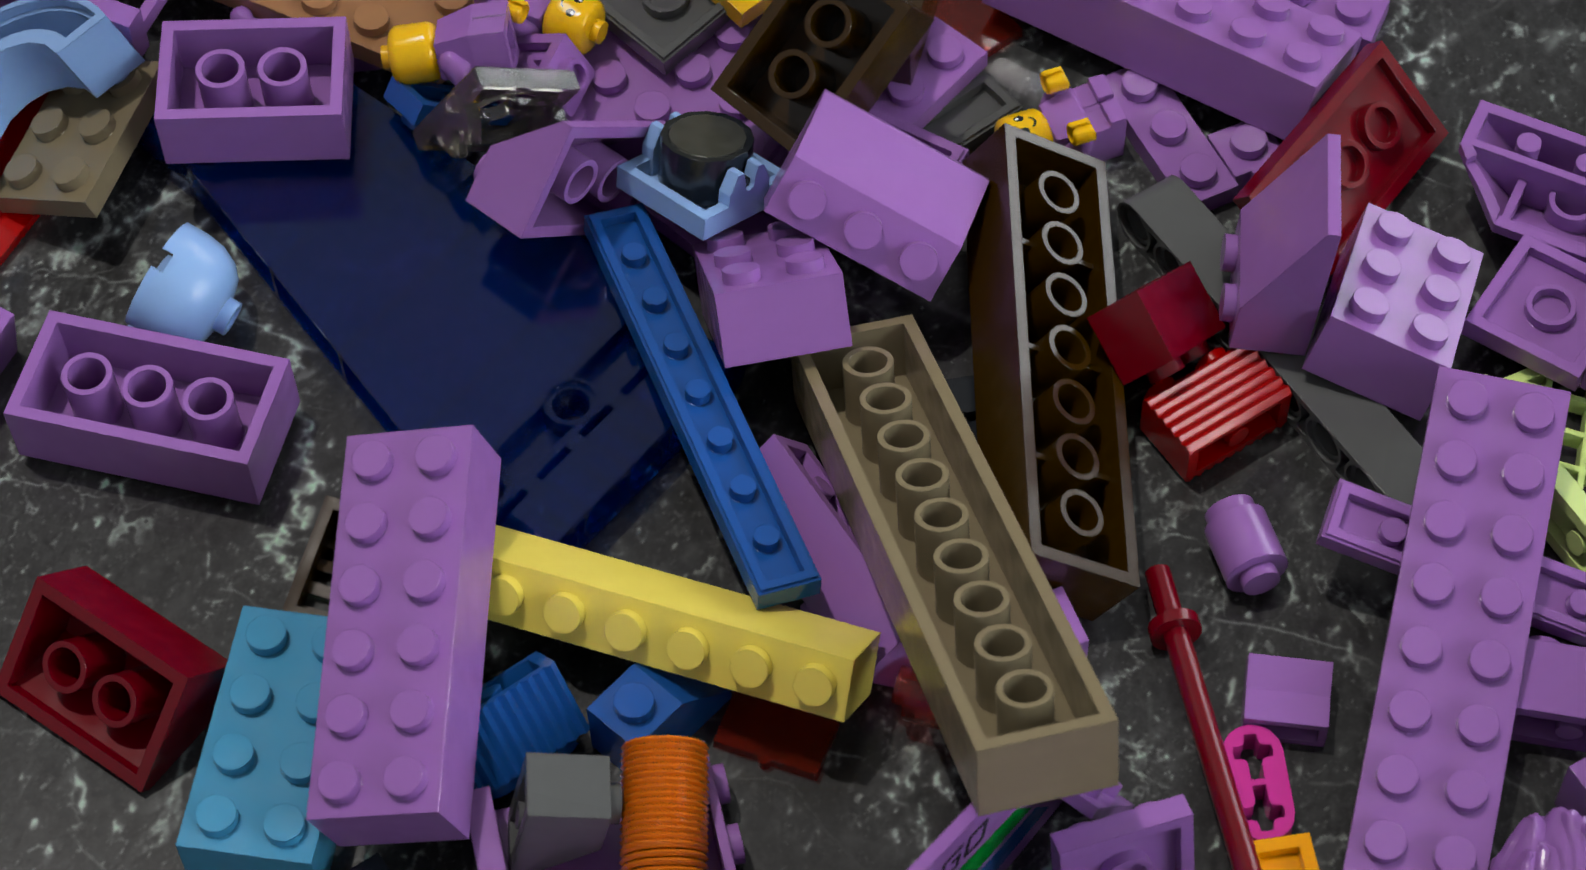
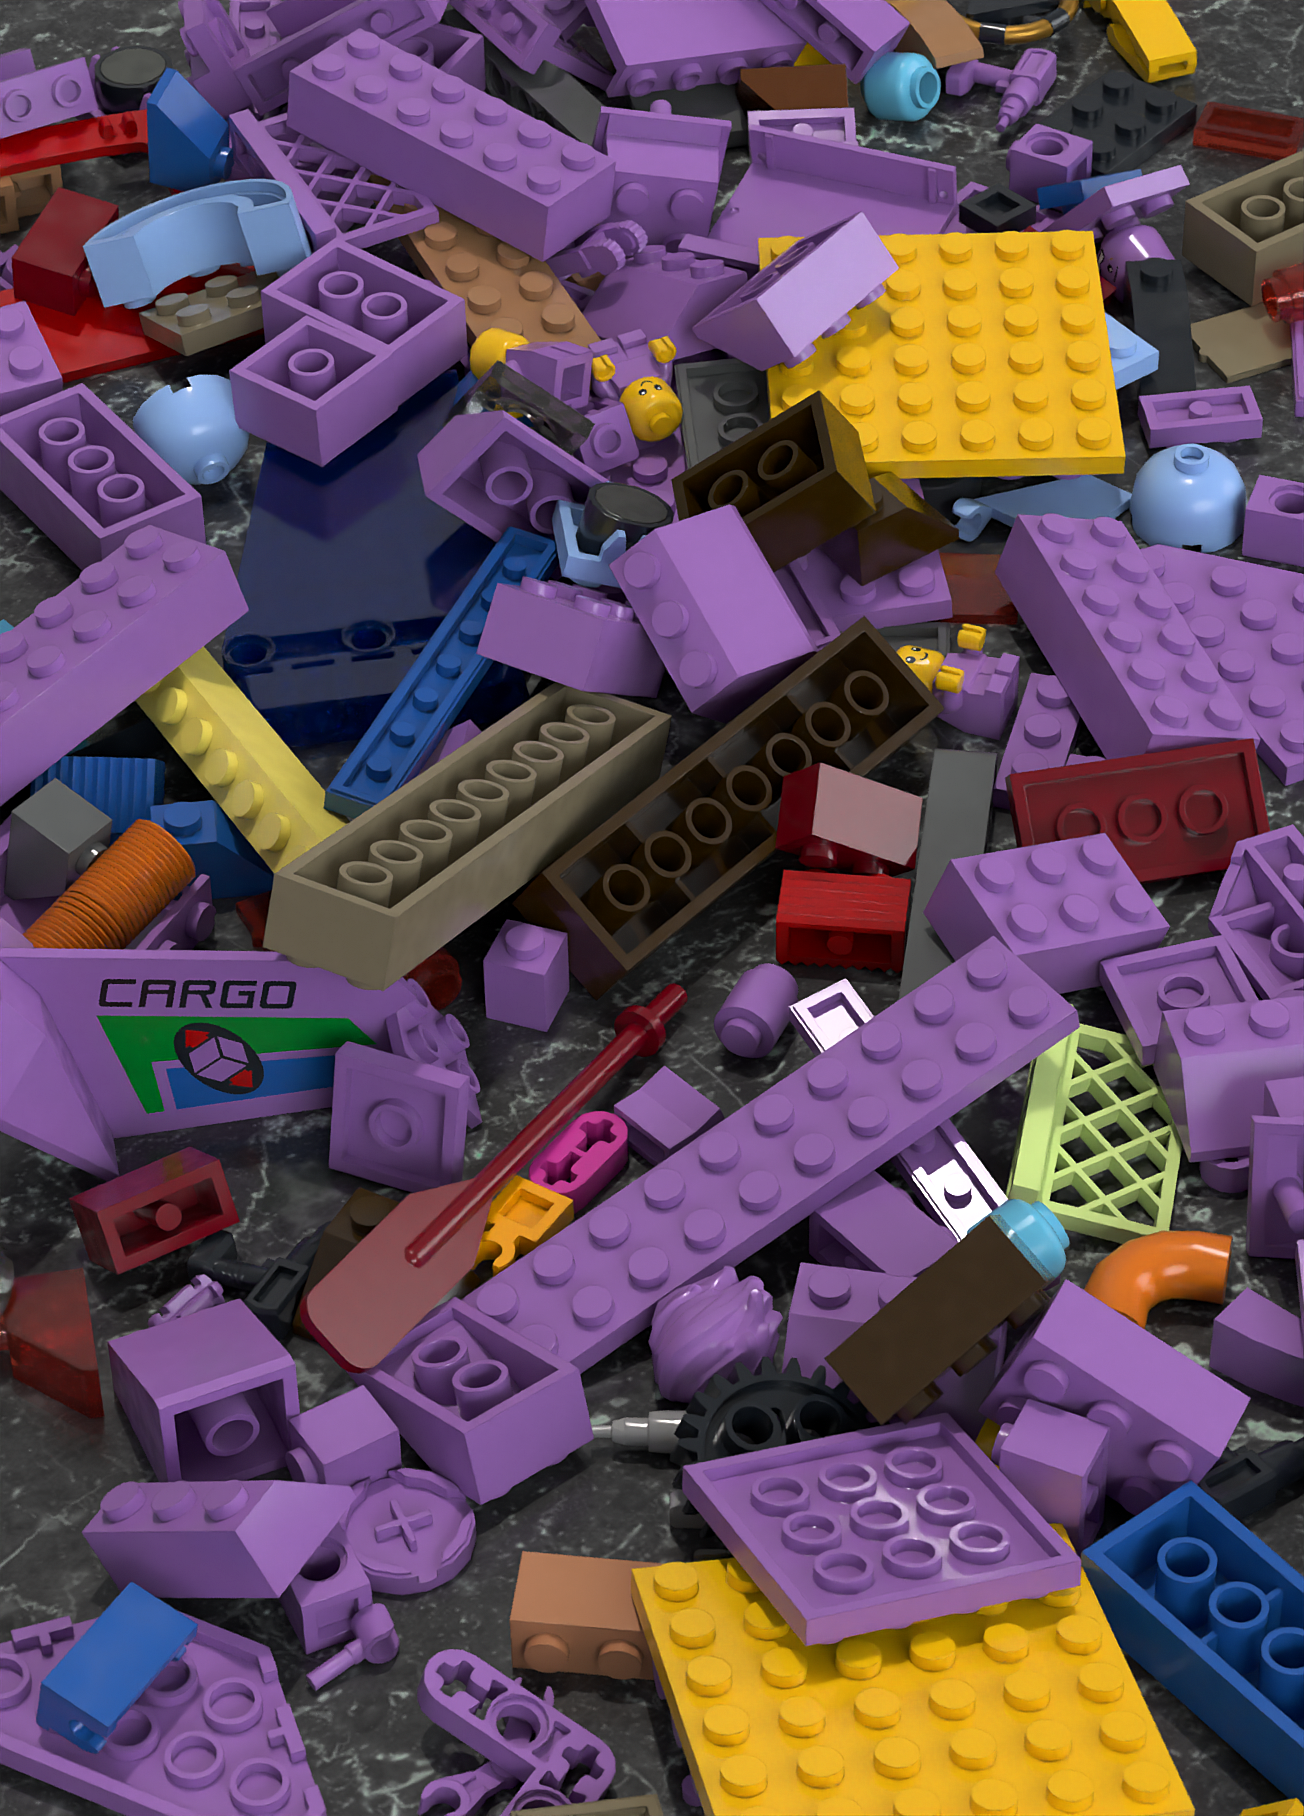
camera: 40 degrees right, 15 degrees down
(286, 188) = (314, 390): none -> medium lavender brick
(1284, 254) = (977, 806): medium lavender slope -> none

